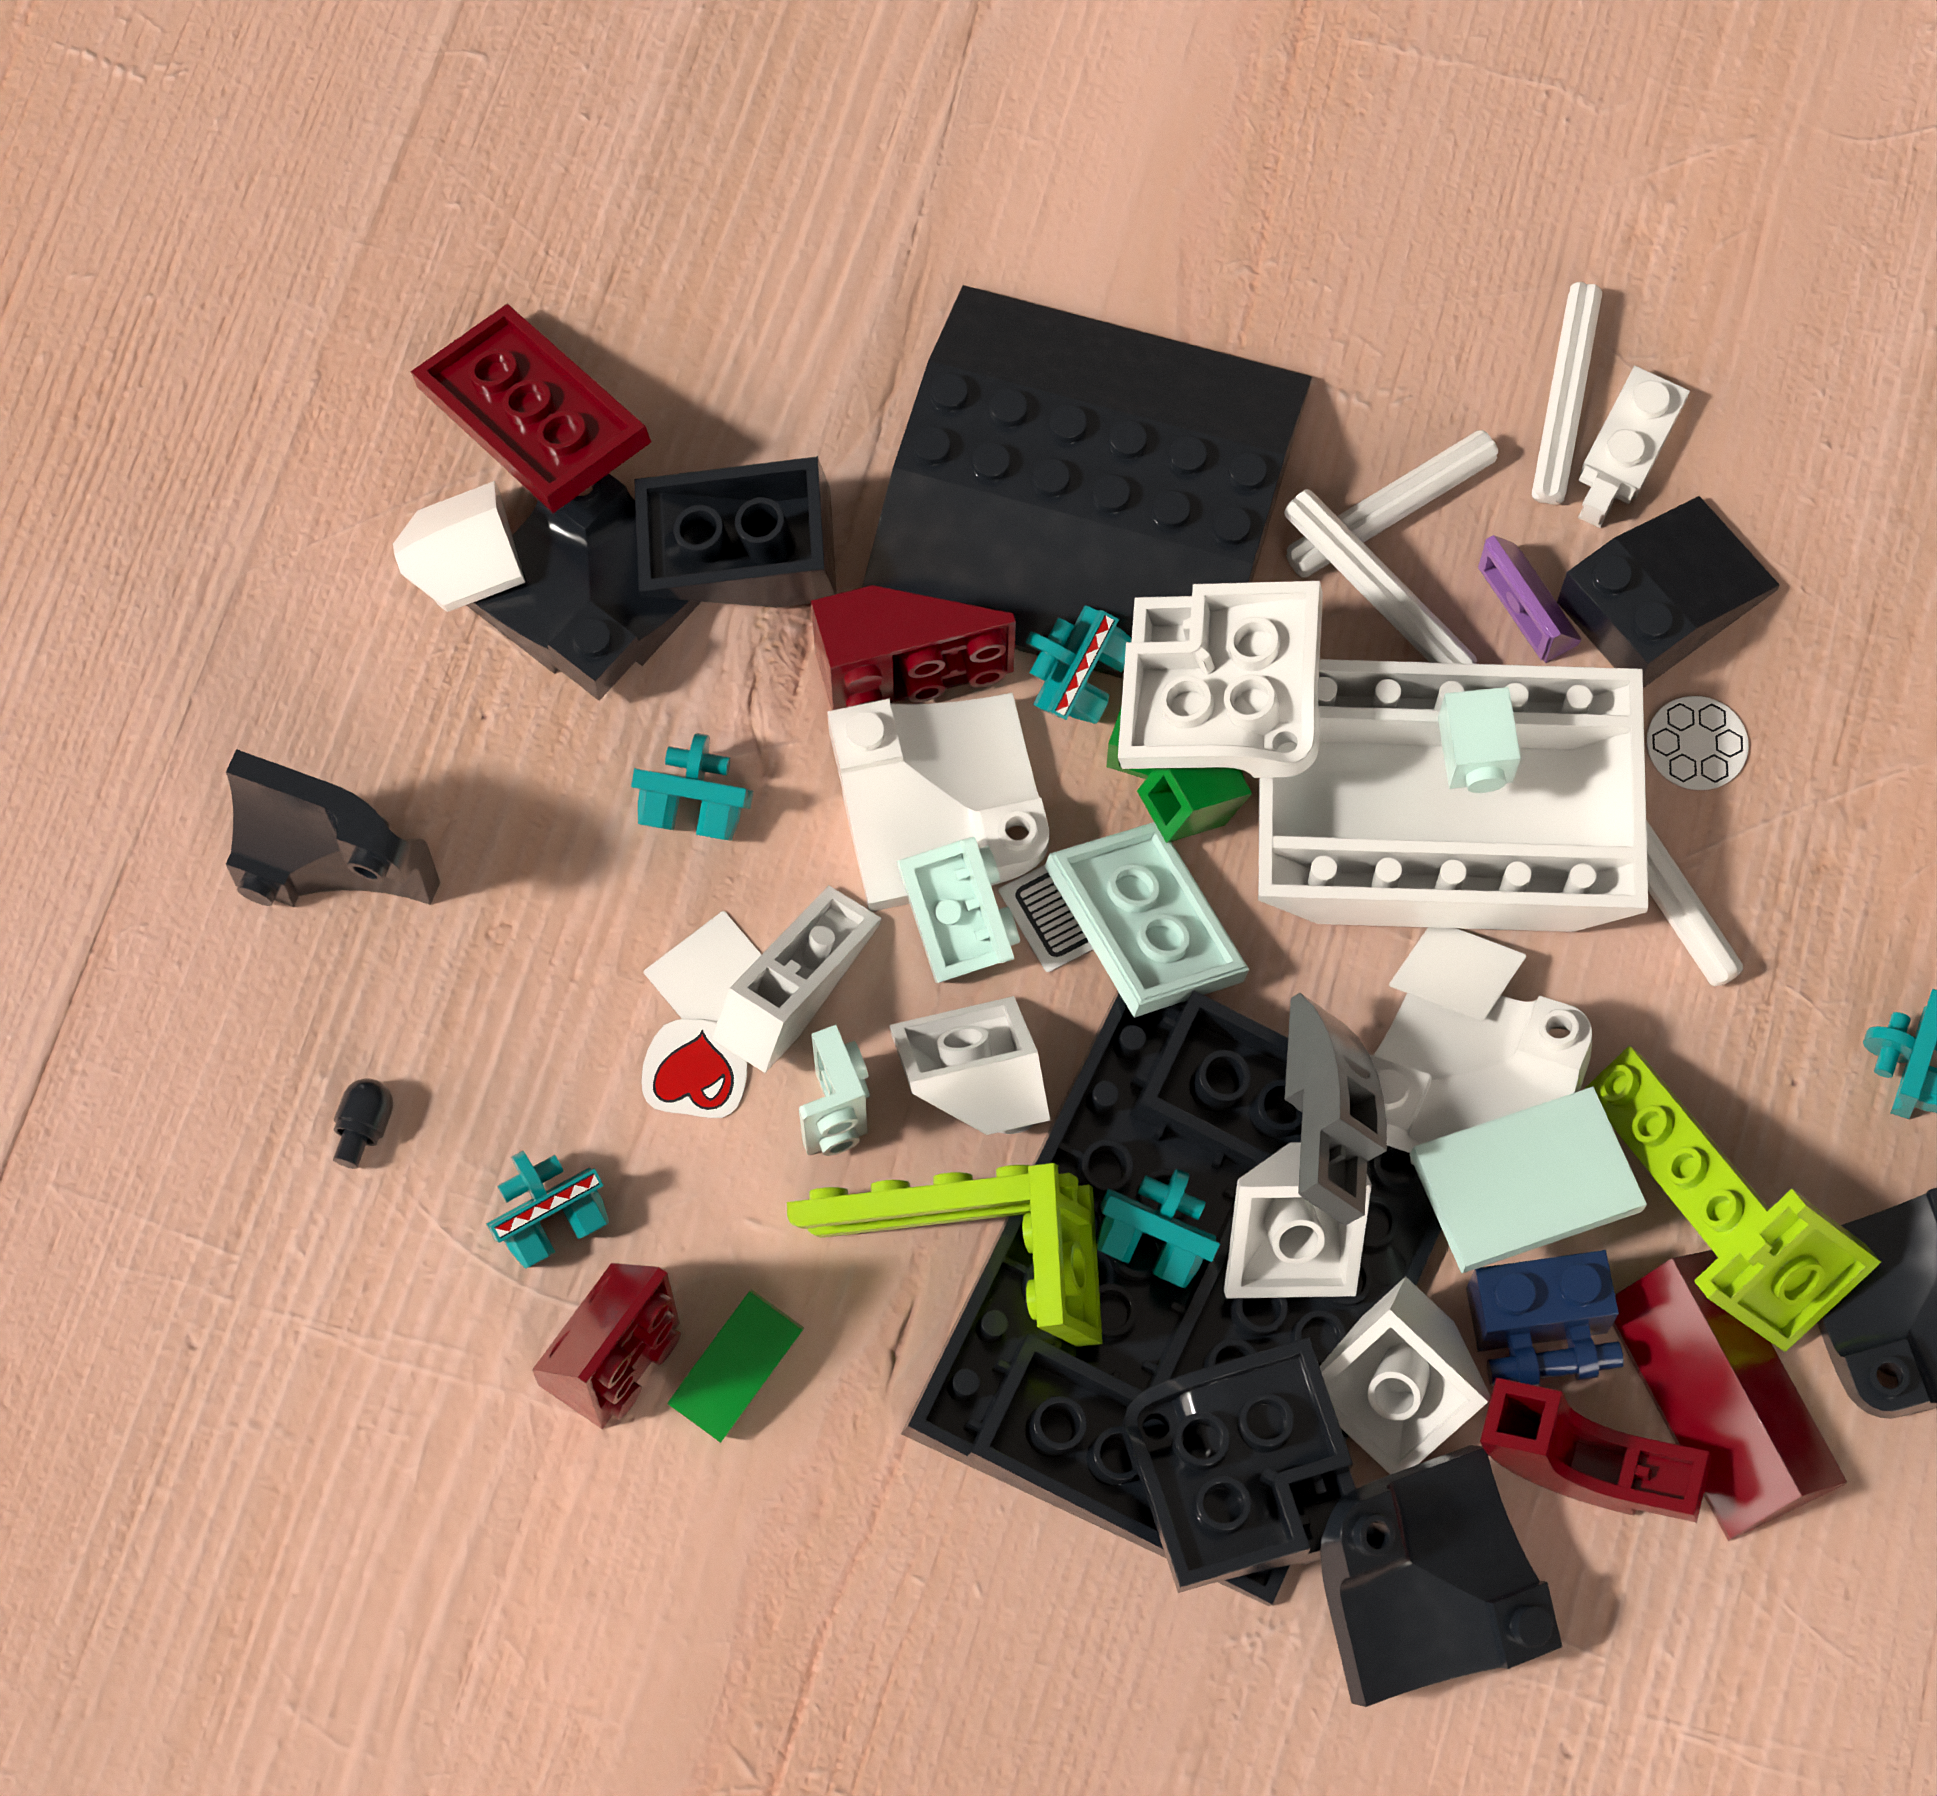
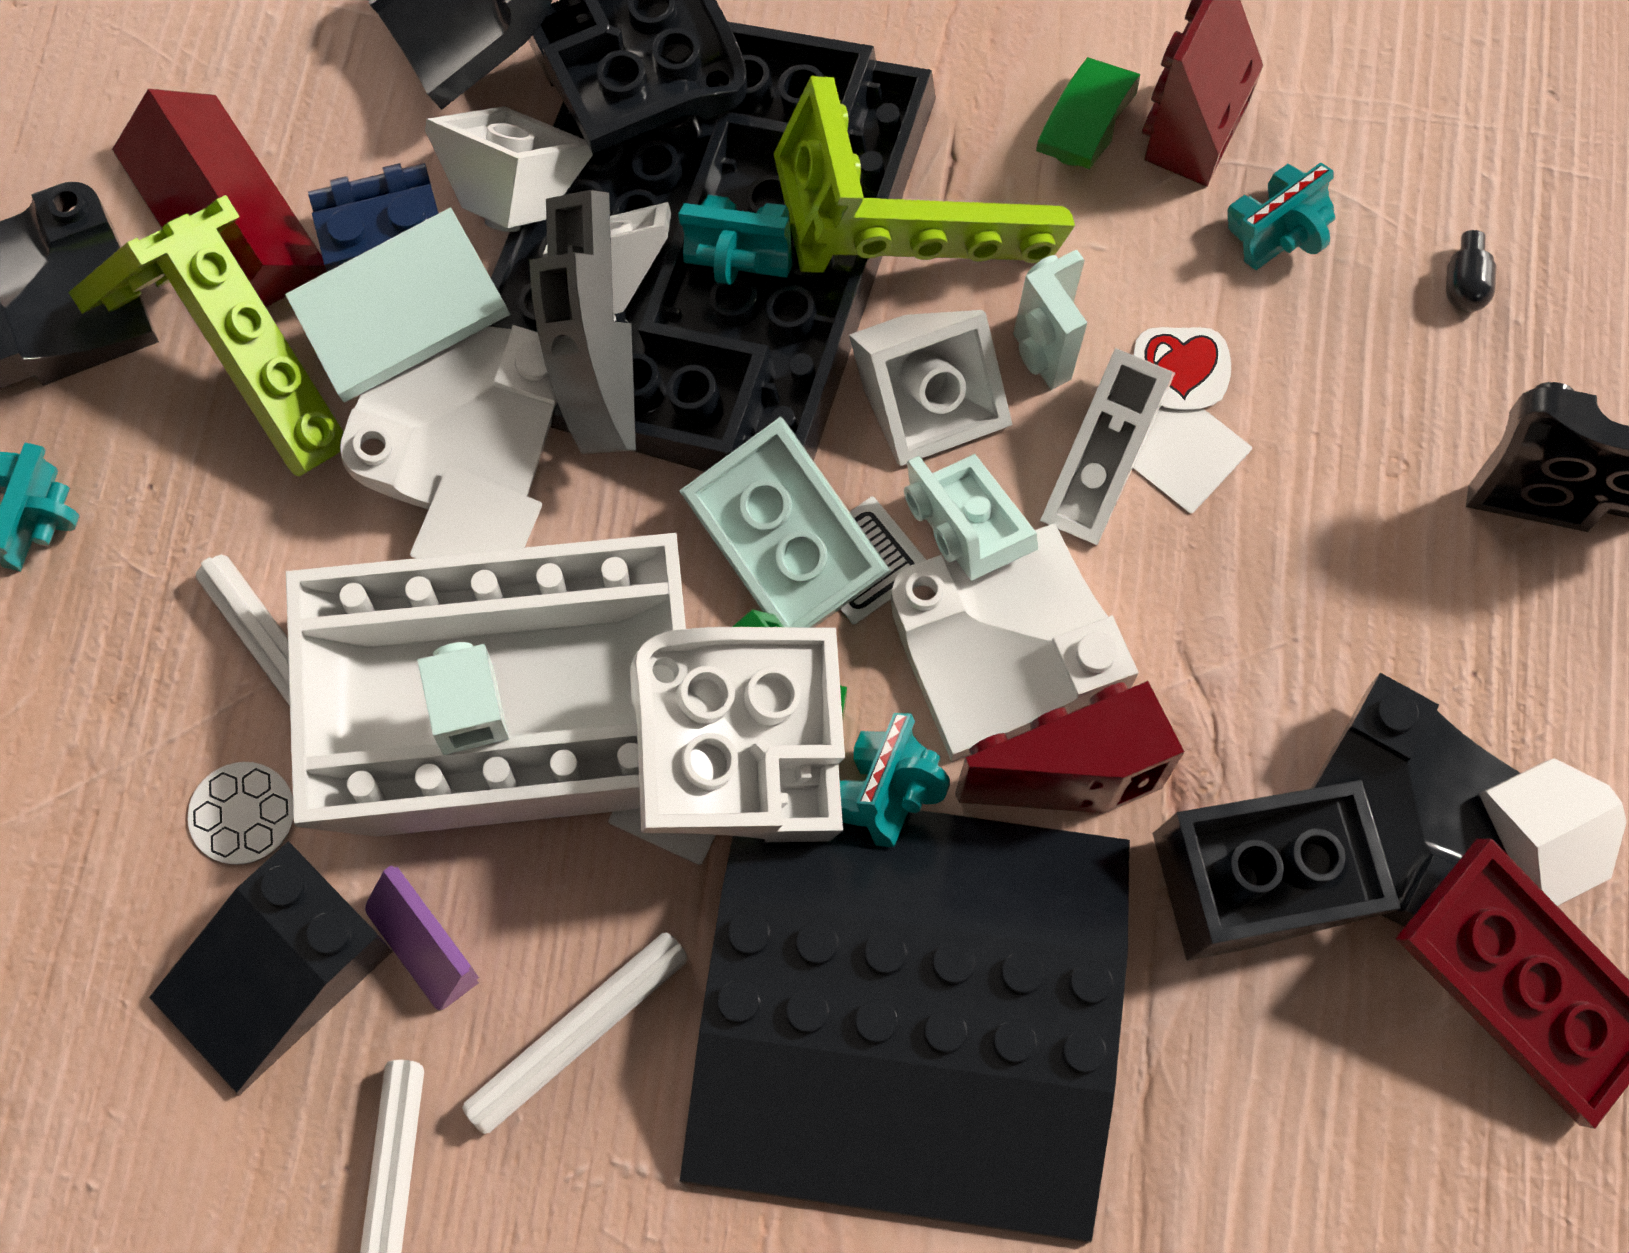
camera: 170 degrees right, 0 degrees up
(661, 792) = (1252, 607): teal hips -> none
(1375, 581) = (584, 918): white axle -> none
(1556, 1448) = (335, 124): dark red arch -> none
(1629, 442) = (315, 1147): white hinge -> none

